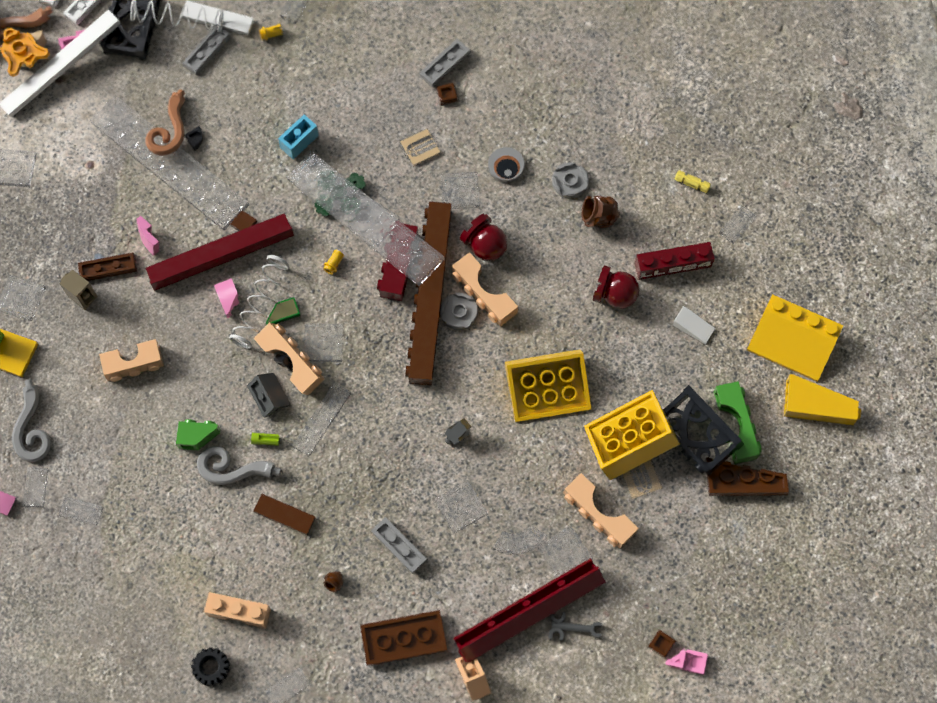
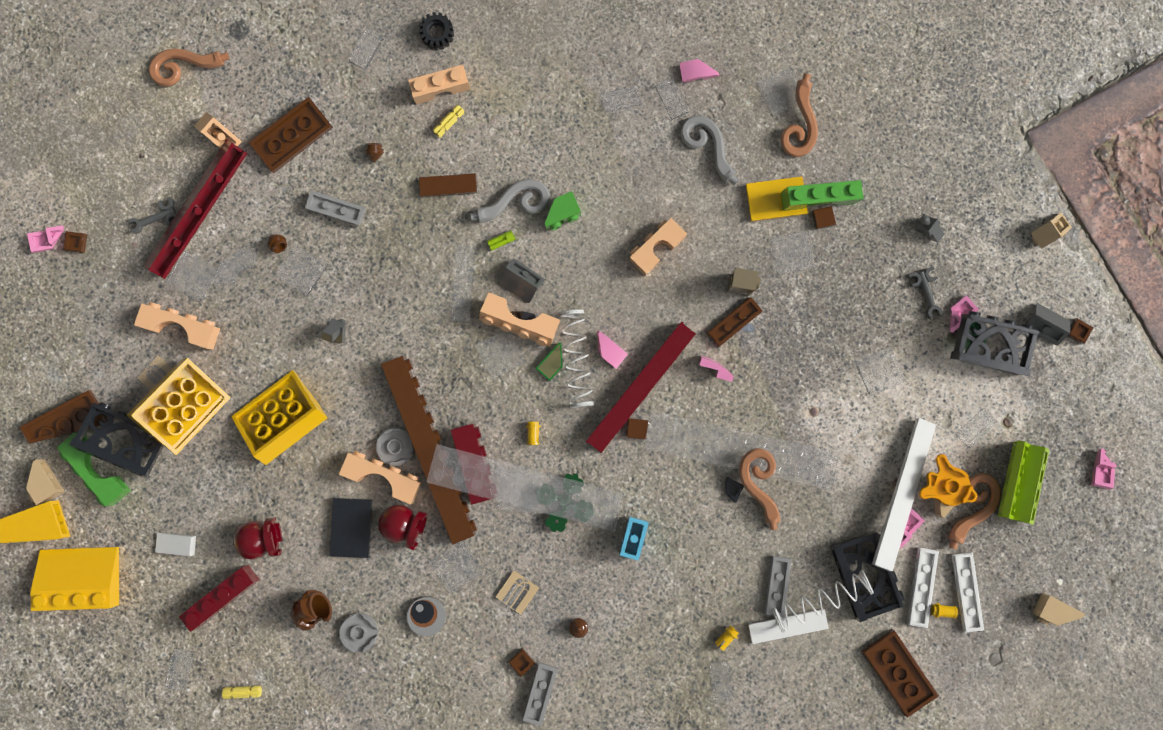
camera: 150 degrees right, 15 degrees up
(249, 574) = (448, 121): none -> light yellow axle
(385, 95) = (578, 628): none -> reddish brown plate
(470, 542) = (277, 243): none -> reddish brown plate
(532, 264) = (351, 528): none -> black tile
(788, 430) = (42, 483): none -> tan slope

